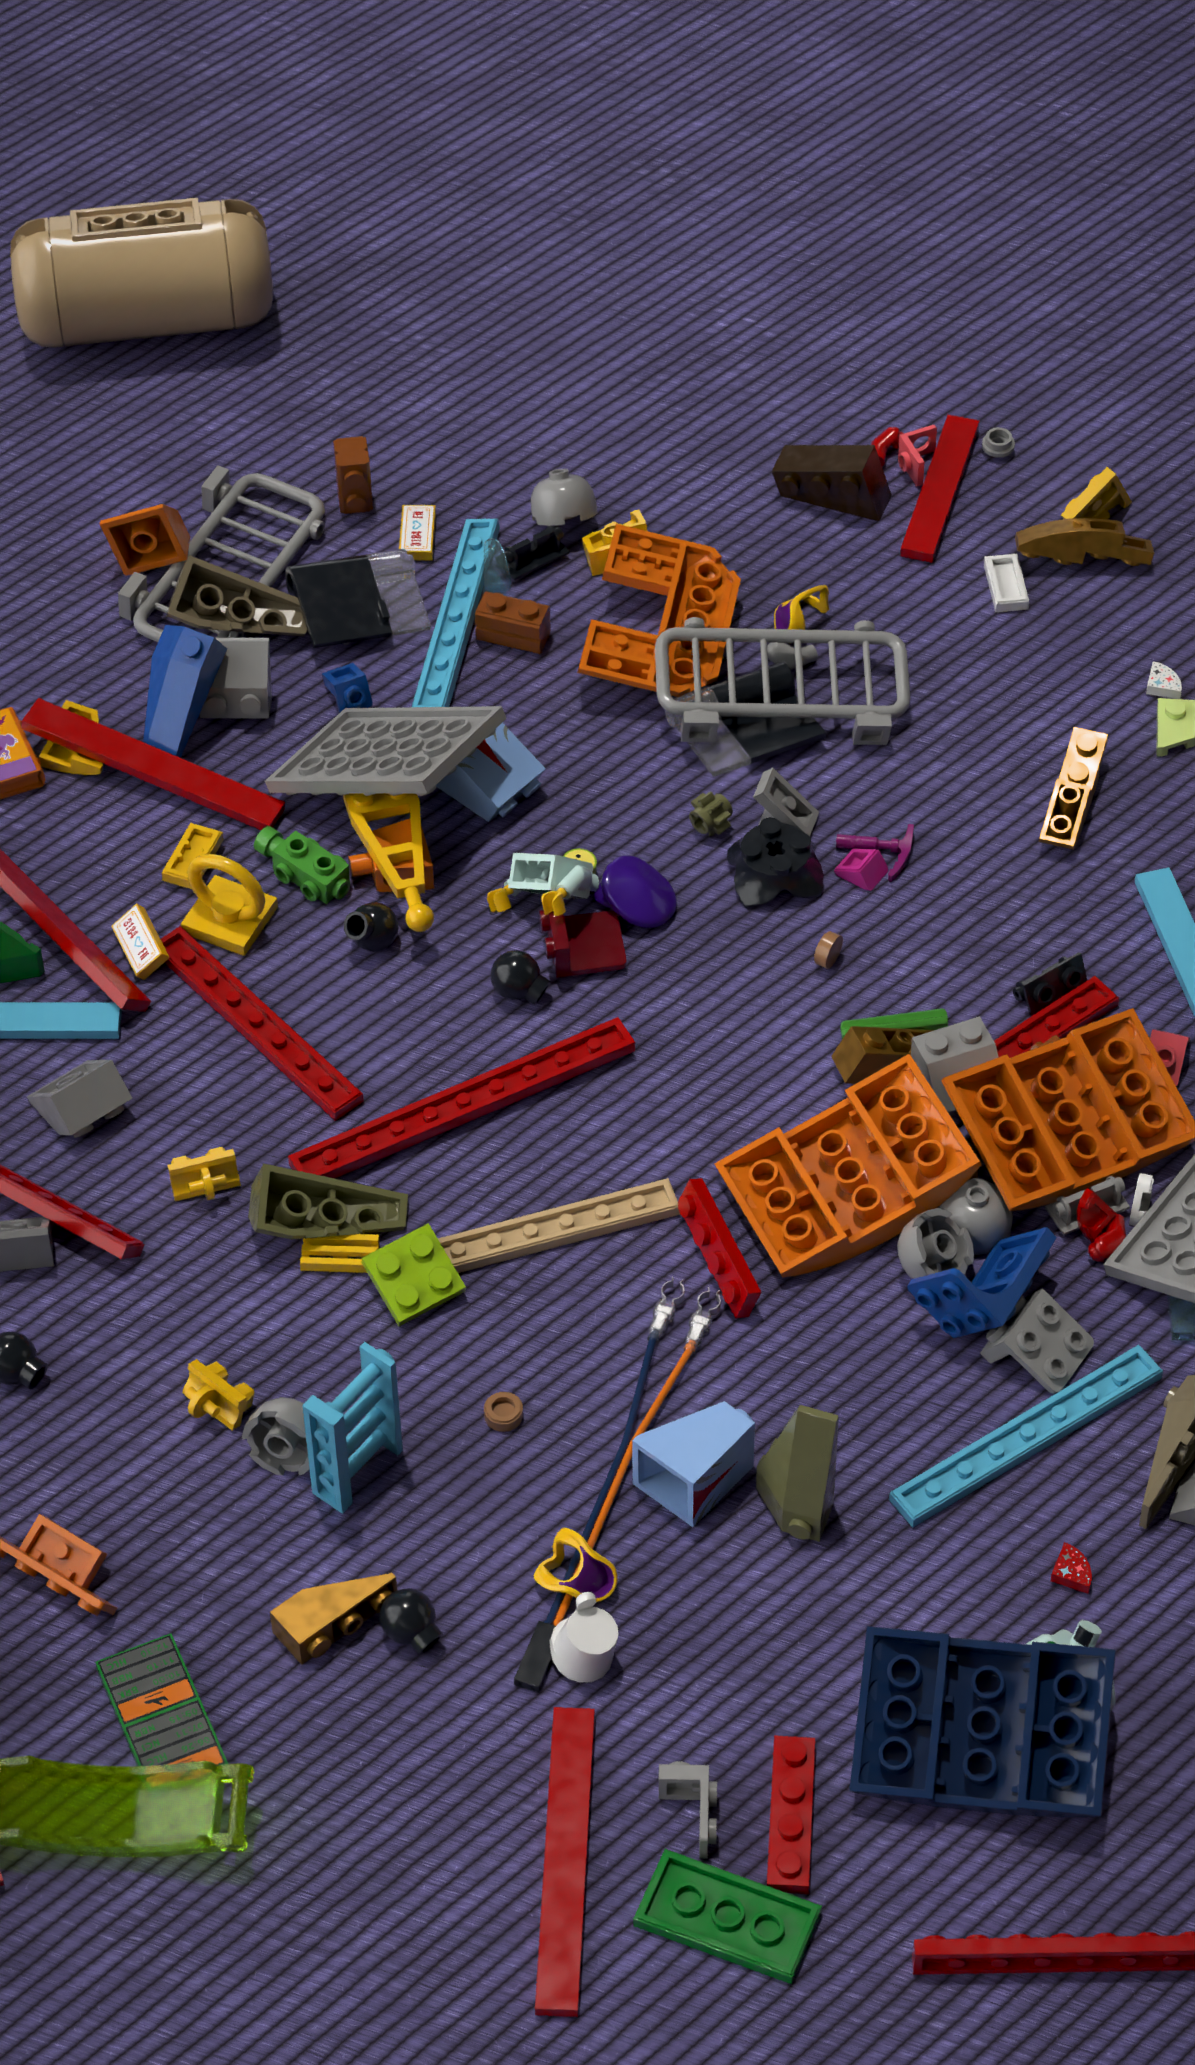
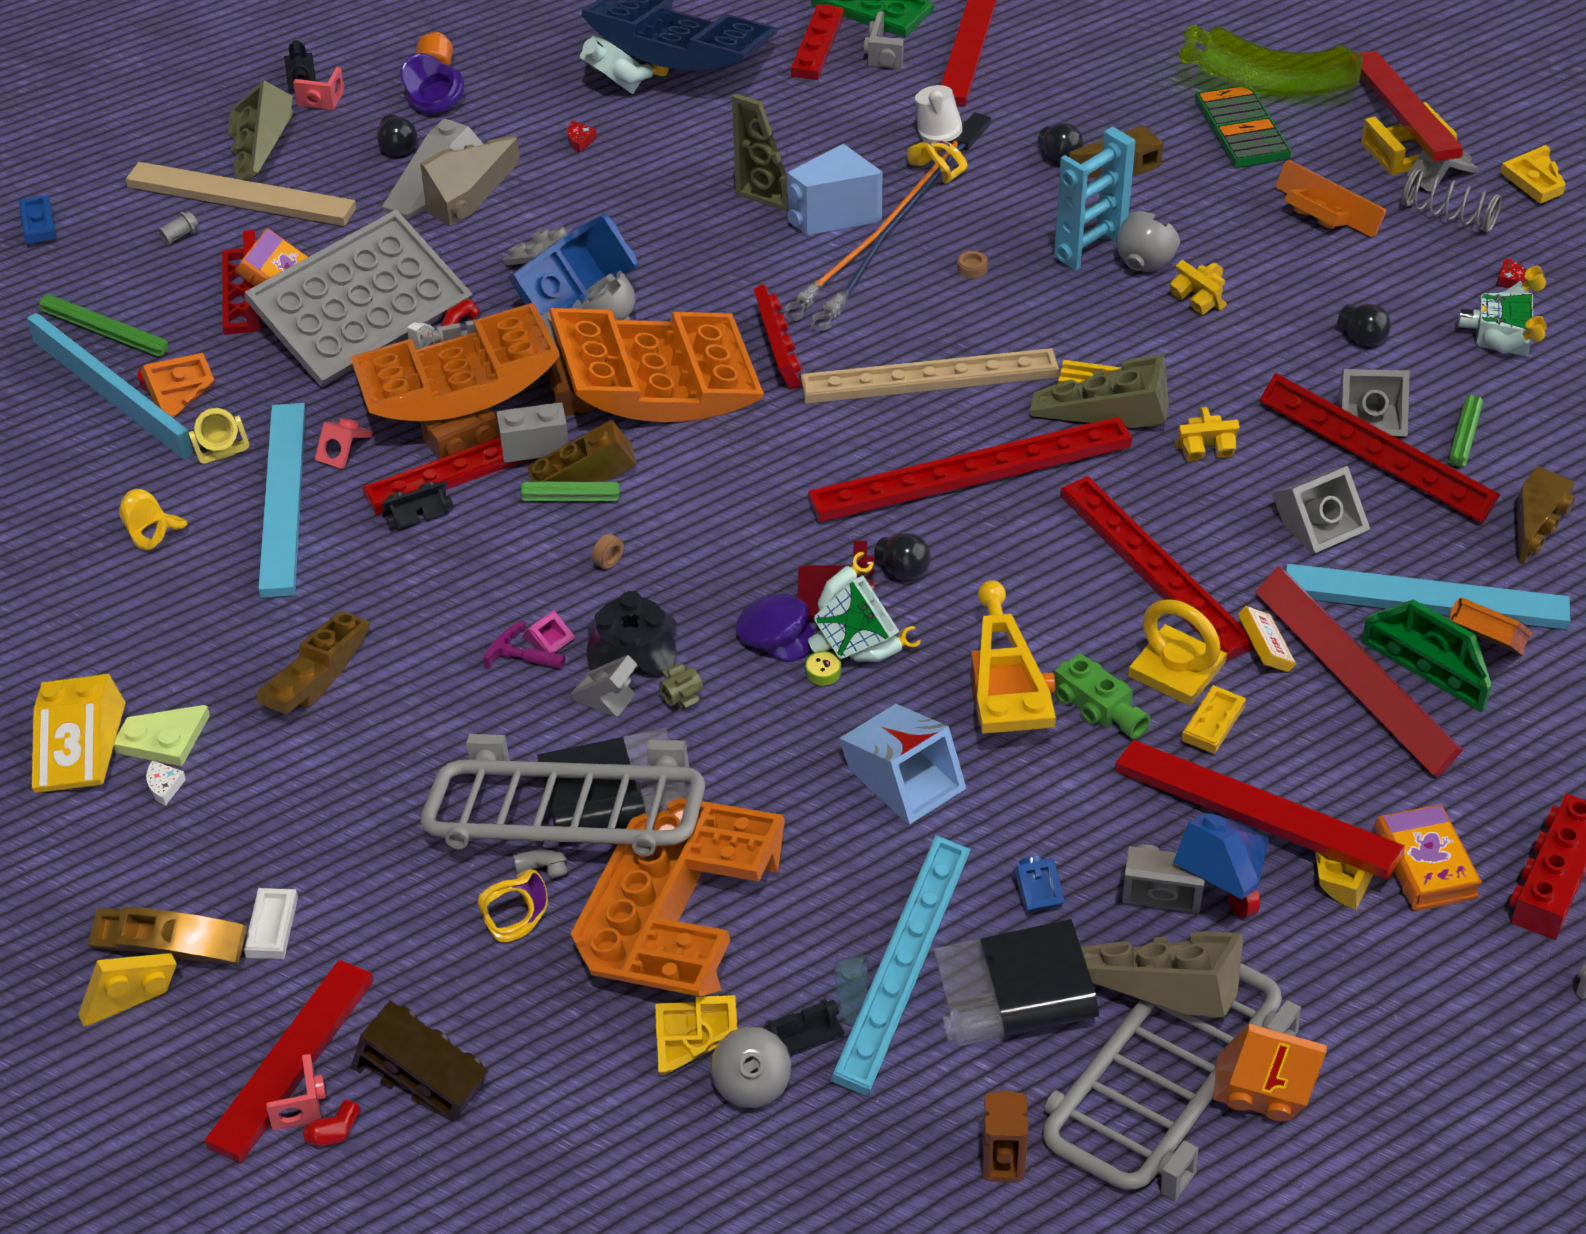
camera: 170 degrees left, 5 degrees down
(372, 926) = (1039, 615): black piece -> none
(386, 750) = (1007, 733): light grey plate -> none
(413, 1274) = (1032, 342): lime plate -> none
(418, 531) = (932, 1086): white tile -> none
(512, 622) = (840, 926): dark orange brick -> none
(998, 442) = (192, 1099): light grey plate -> none
(1025, 1436) = (577, 211): medium azure tile -> none
(1093, 1214) = (462, 317): red tile -> none

